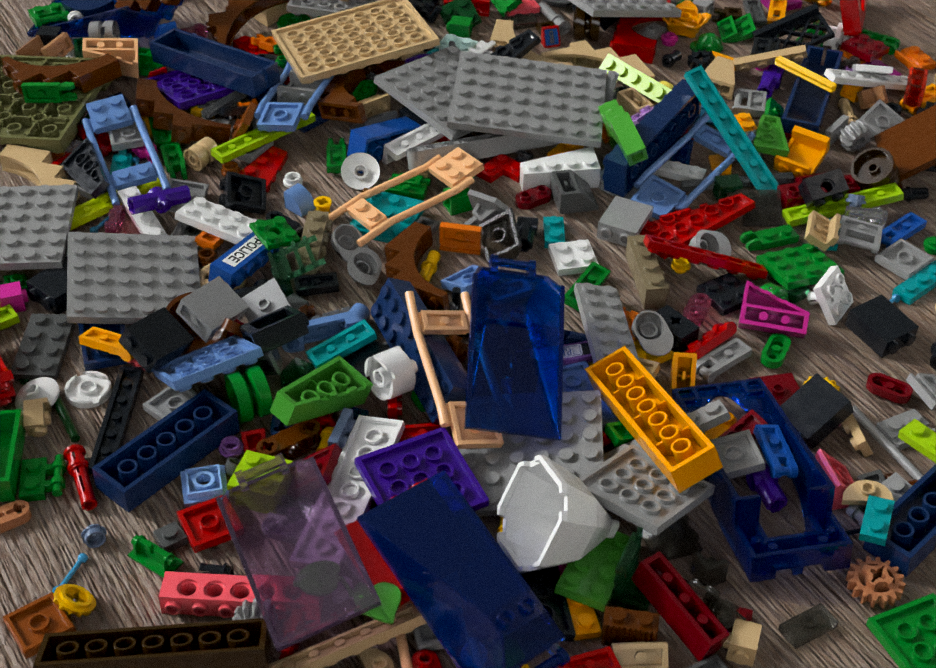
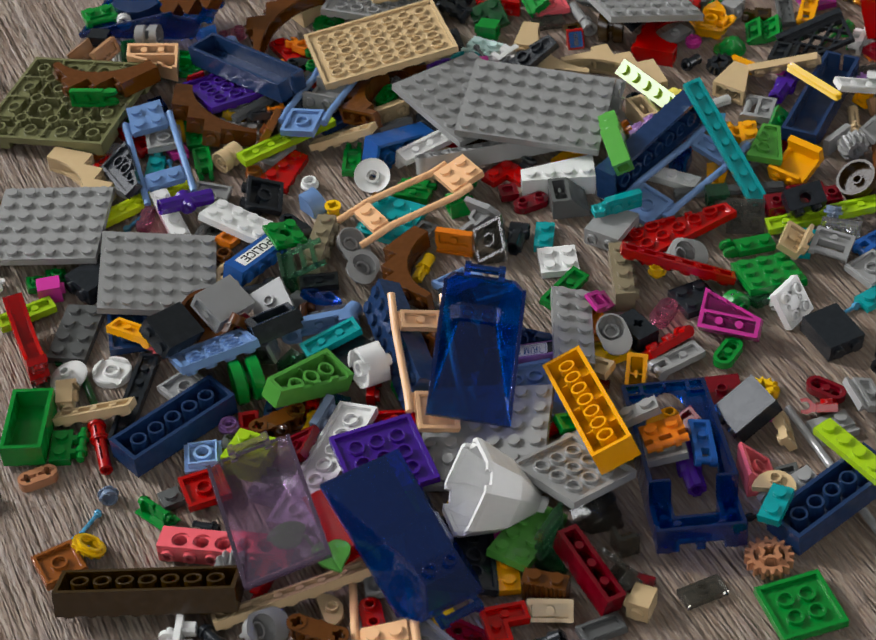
camera: 10 degrees right, 0 degrees up
(72, 435) = (90, 412): none -> tan plate
(320, 133) = (338, 138): none -> tan plate
(320, 301) = (316, 297): none -> clear blue slope
(508, 186) = (508, 192): none -> dark red plate
(629, 297) = (599, 301): none -> dark pink slope
(631, 195) = (618, 203): none -> teal hinge
(736, 442) = (663, 434): none -> orange plate
(894, 405) = (824, 405): none -> plate

